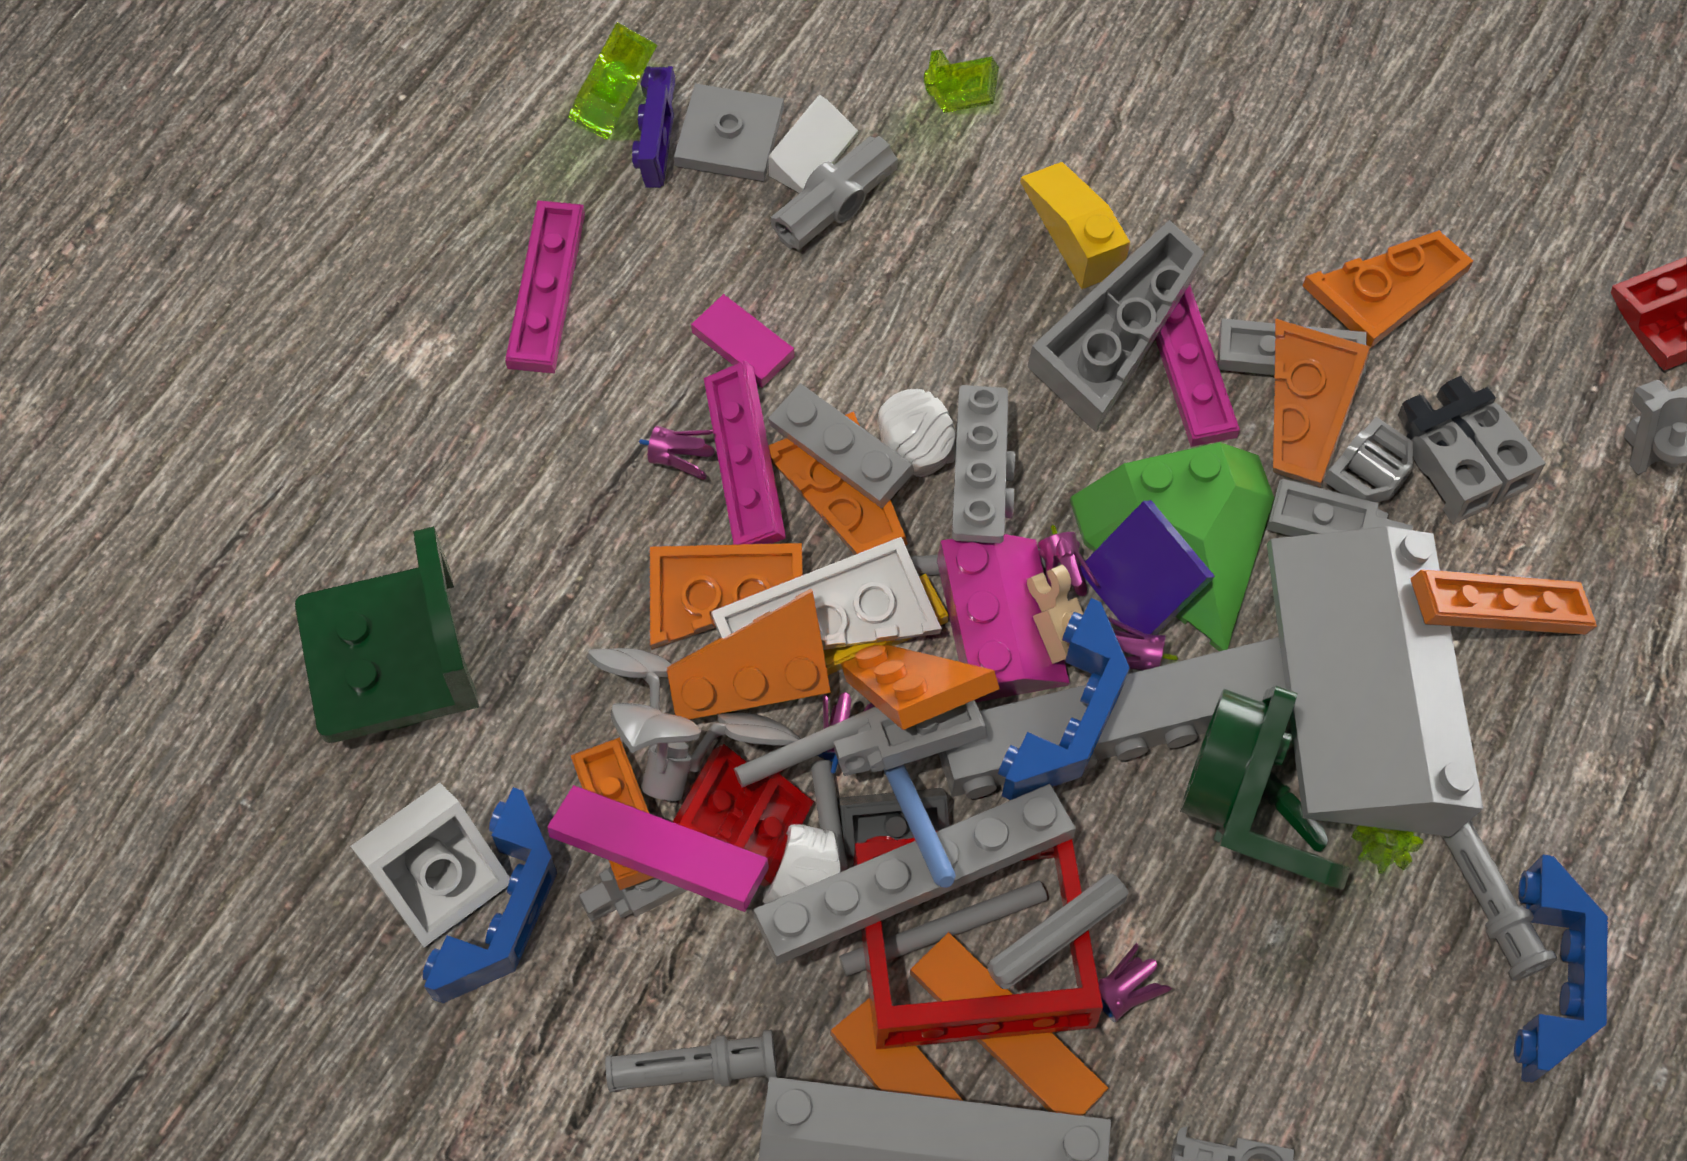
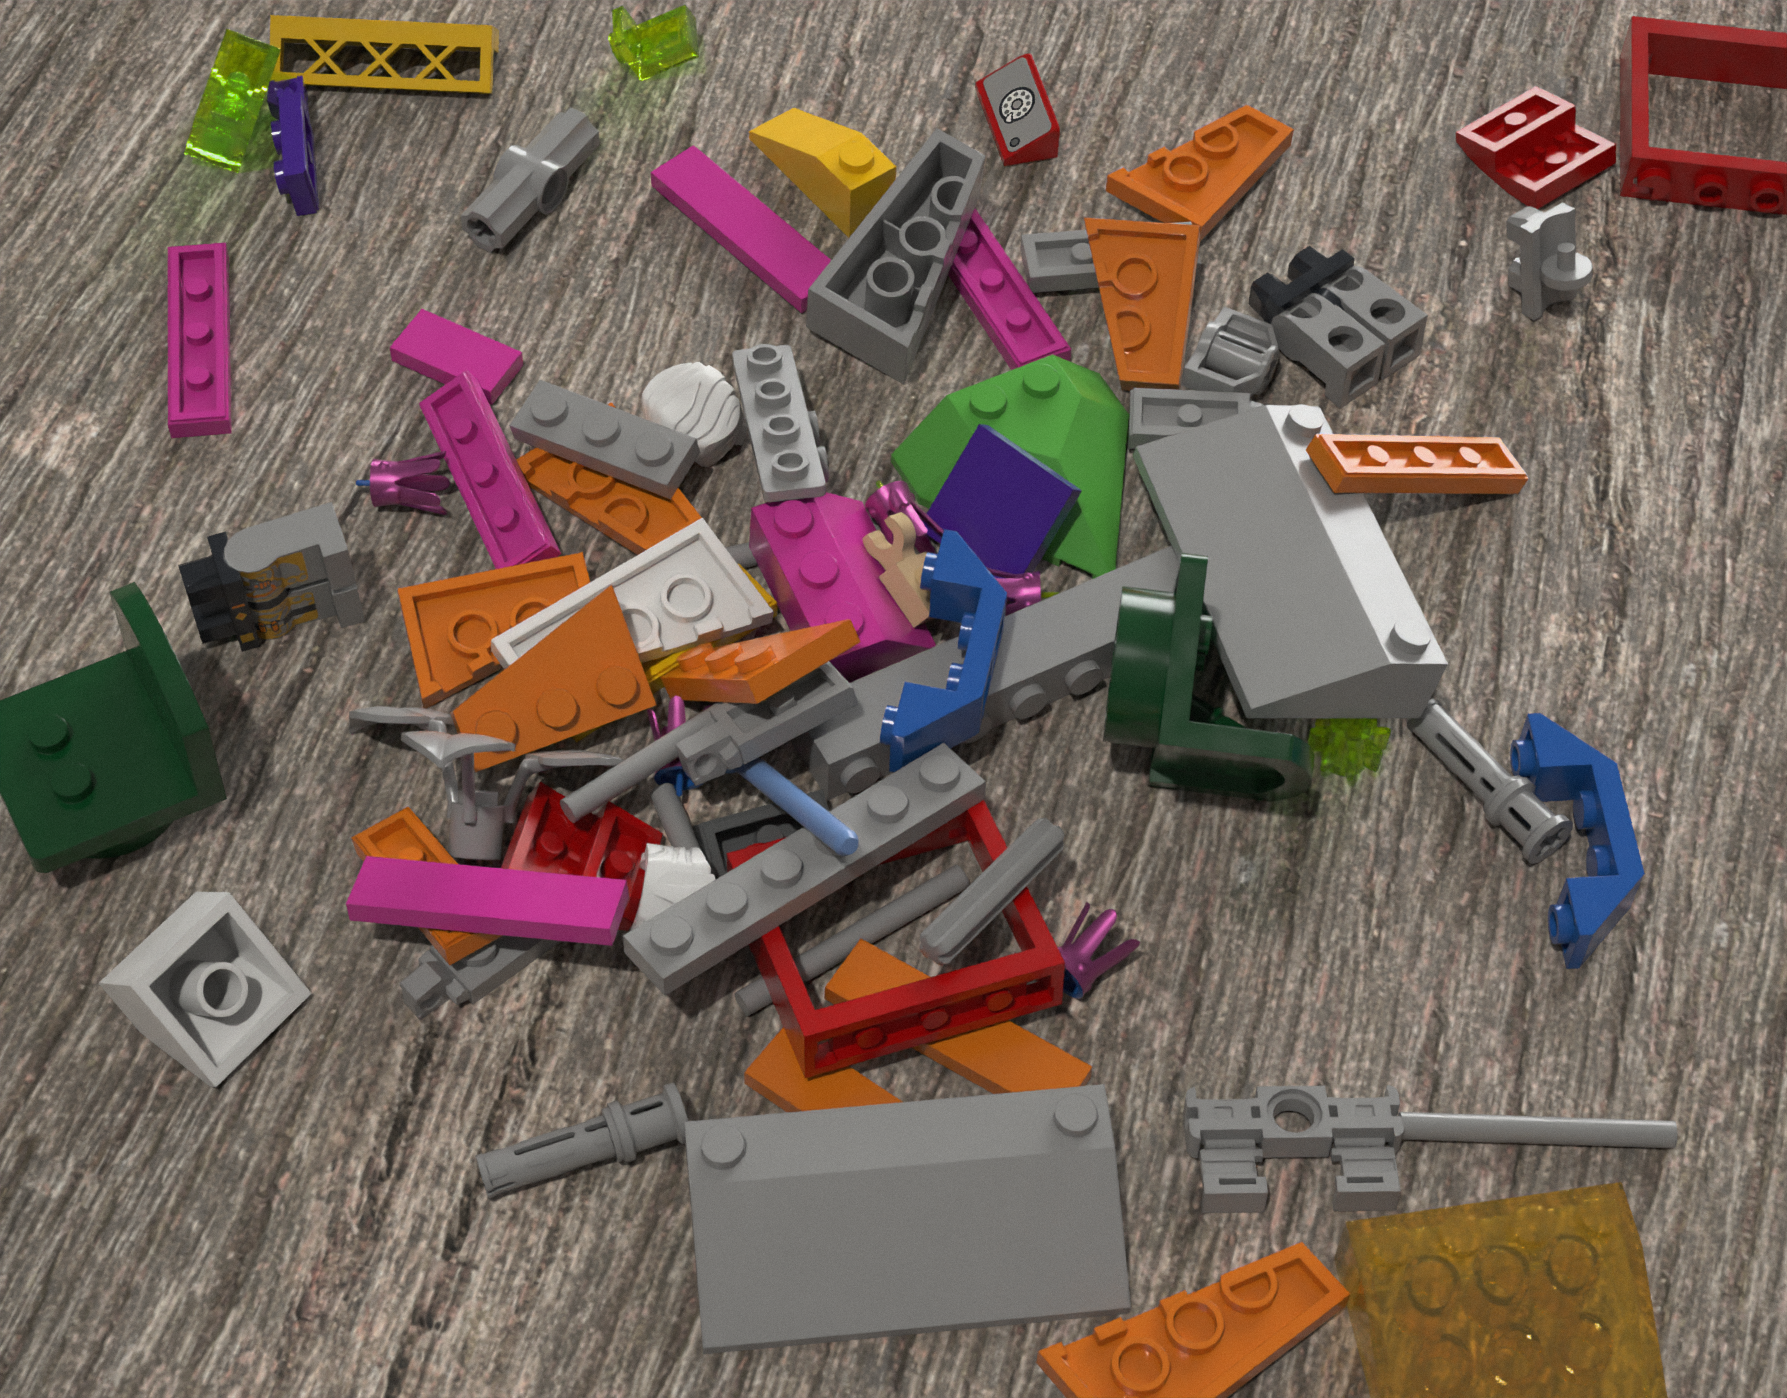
camera: 15 degrees left, 10 degrees down
(464, 966) = (284, 1088): blue slope -> none
(553, 521) = (273, 579): none -> hips
(729, 132) = (386, 139): light grey plate -> none
(746, 38) = (394, 36): none -> yellow fence
(814, 139) = (486, 131): white slope -> none
(997, 264) = (741, 224): none -> dark pink tile
(1246, 200) = (1019, 112): none -> slope

